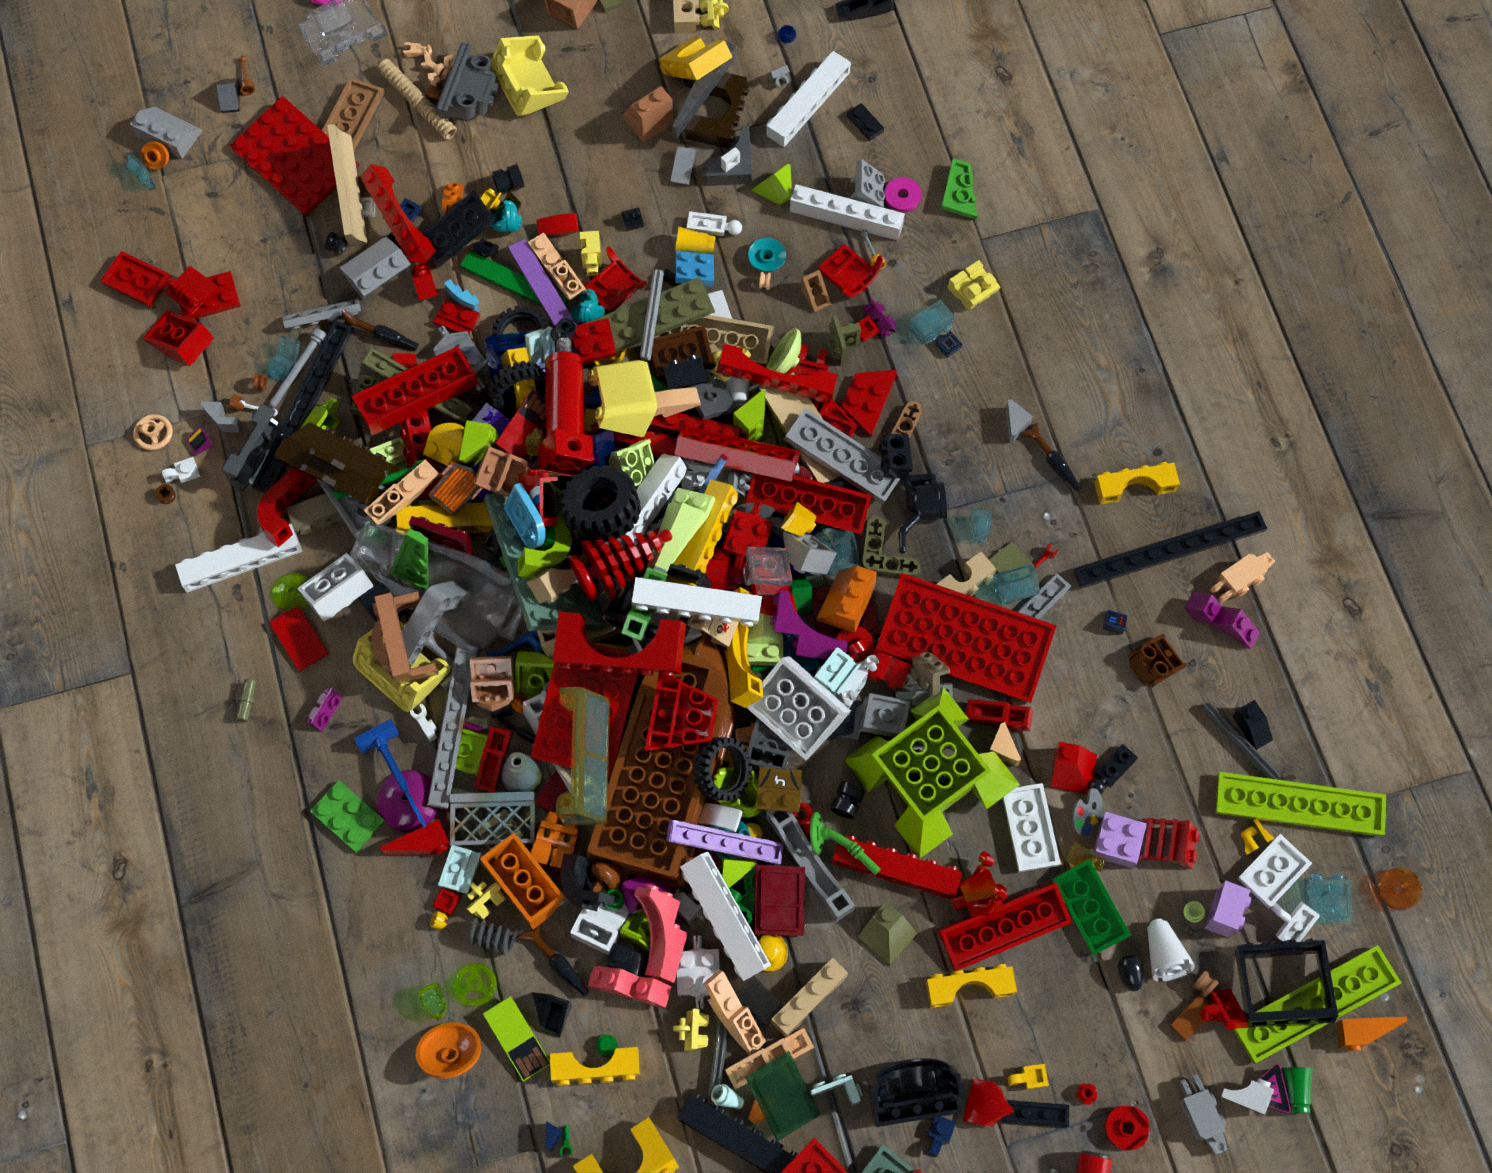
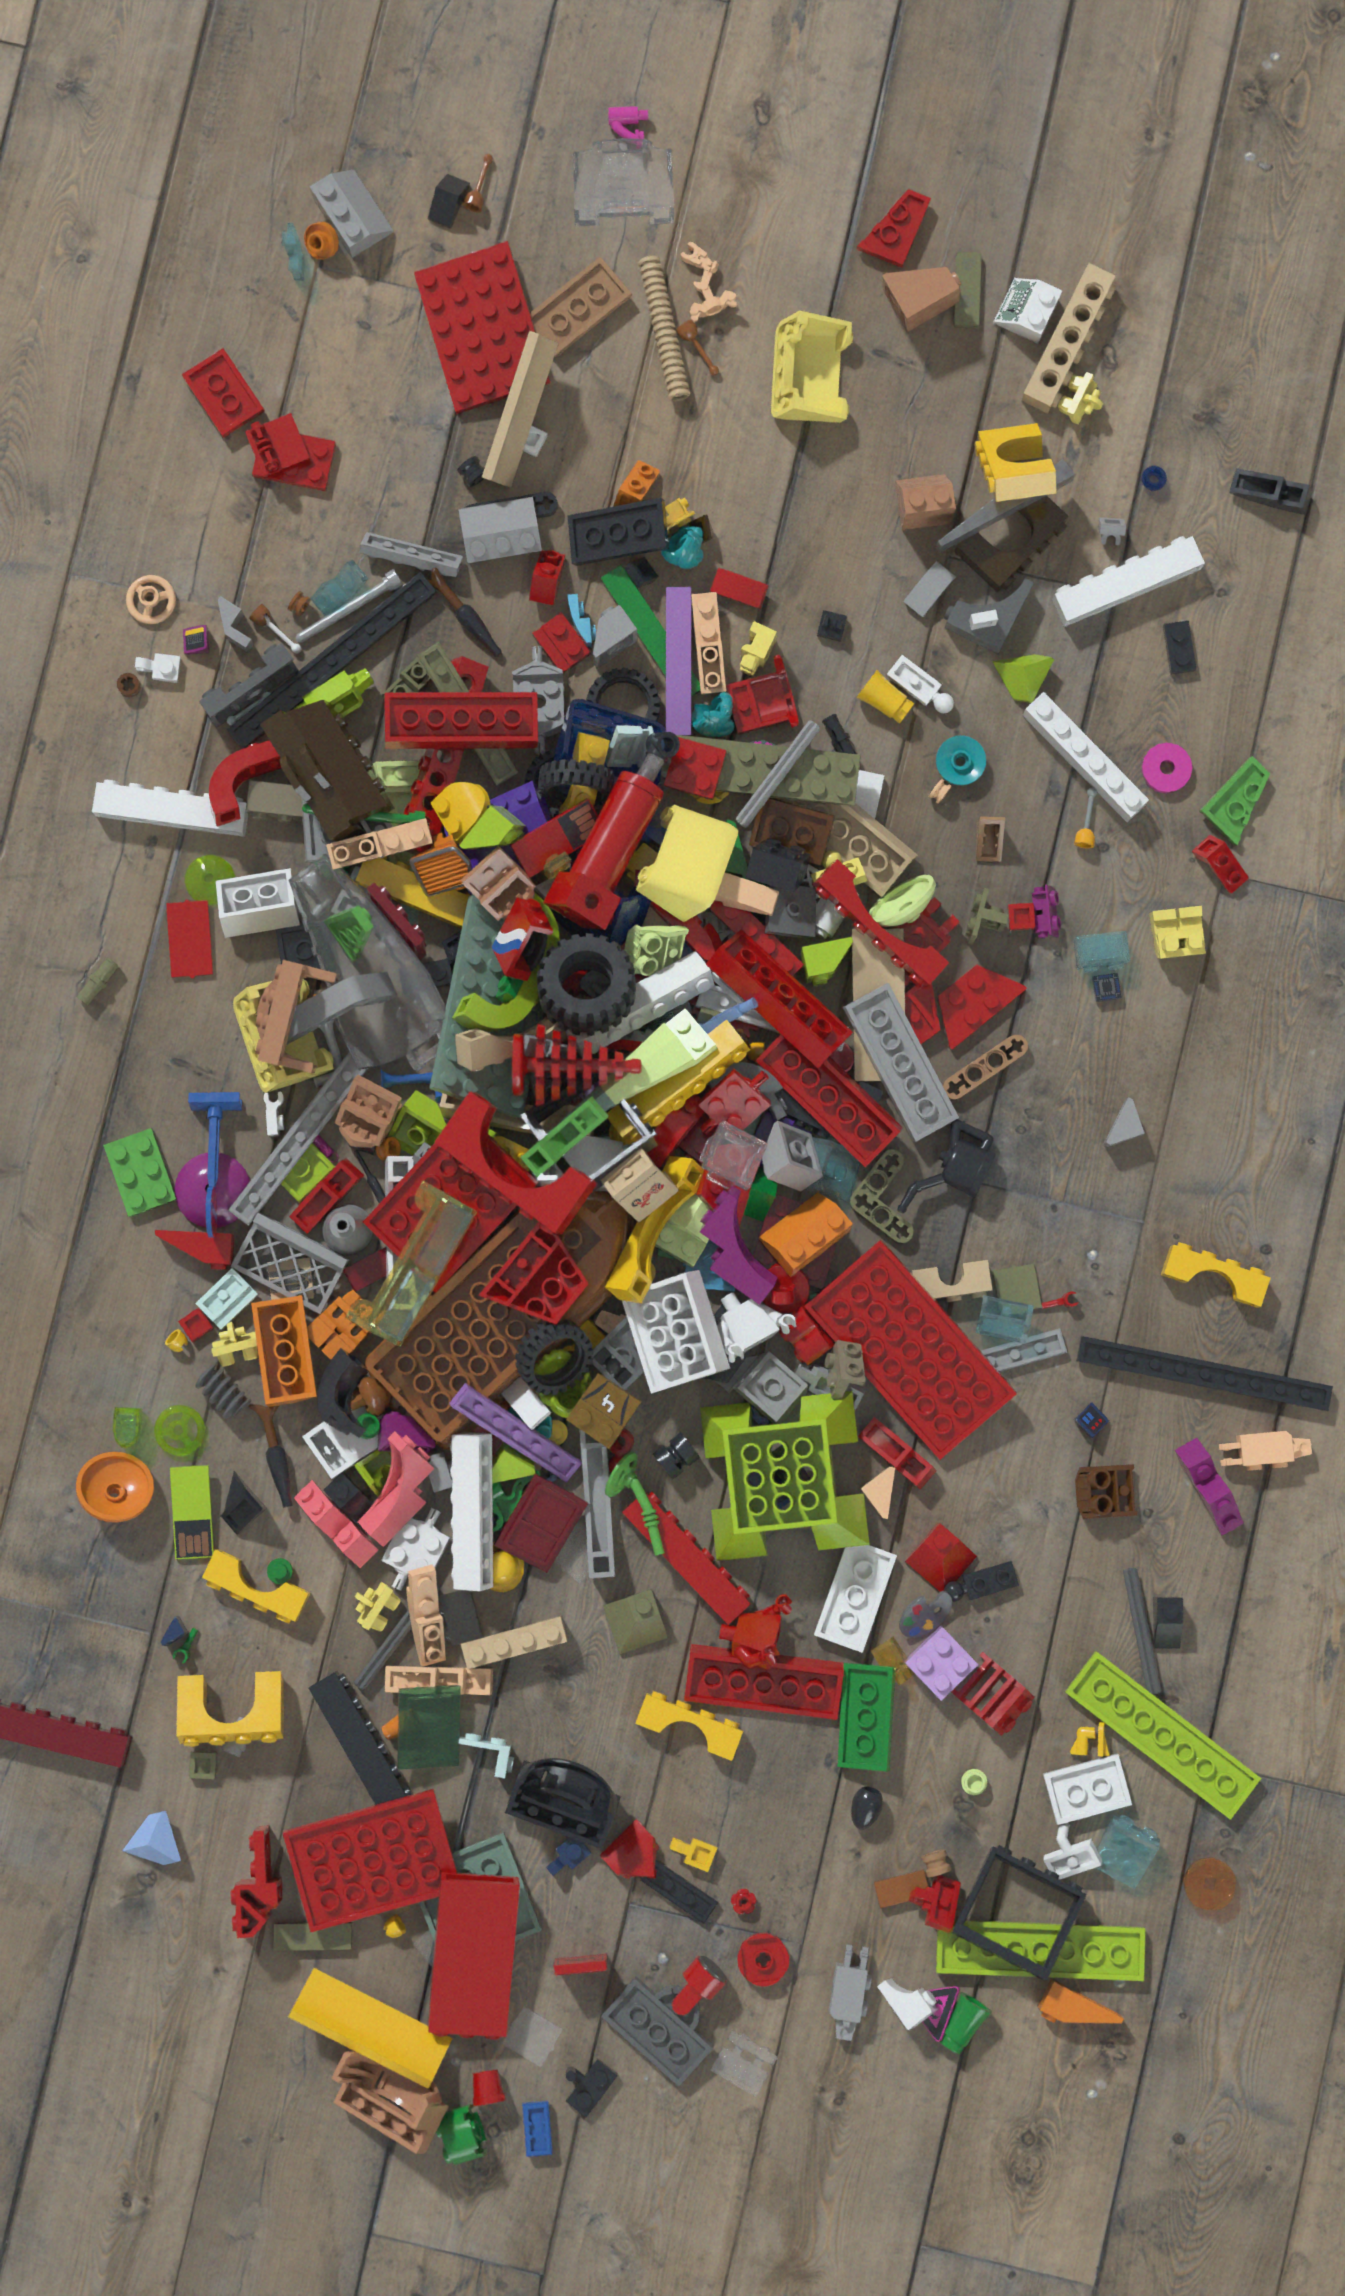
camera: 30 degrees right, 15 degrees up
(179, 337) = (235, 496): red slope -> none
(328, 703) = (167, 1044): magenta hinge -> none
(411, 209) = (577, 473): dark blue plate -> none
(412, 242) = (558, 524): red arch -> none
(468, 86) = (731, 347): dark grey brick -> none
(490, 291) = (613, 635): none -> light grey slope
(508, 179) = (713, 497): black wheel -> none
(525, 517) = (496, 953): medium azure tile -> none
(694, 265) = (866, 732): dark azure plate -> none
(697, 601) = (621, 1167): white brick -> none
(726, 1097) = (369, 1694): light aqua cone -> none
(740, 484) = (759, 1035): light grey tile -> none
(799, 520) = (801, 1117): yellow slope -> none
(837, 671) = (741, 1314): light aqua plate -> none
(849, 271) = (1044, 833): red piece -> none
(868, 184) = (1131, 737): light grey plate -> none
(898, 455) = (964, 1099): black brick -> none
(975, 228) = (1222, 862): none -> red bracket
(982, 525) = (1009, 1230): clear light blue leg -> none
(1053, 458) = (1140, 1192): black piece -> none
(1167, 954) = (916, 1807): white cone -> none
(1227, 909) = (1007, 1803): lavender brick -> none

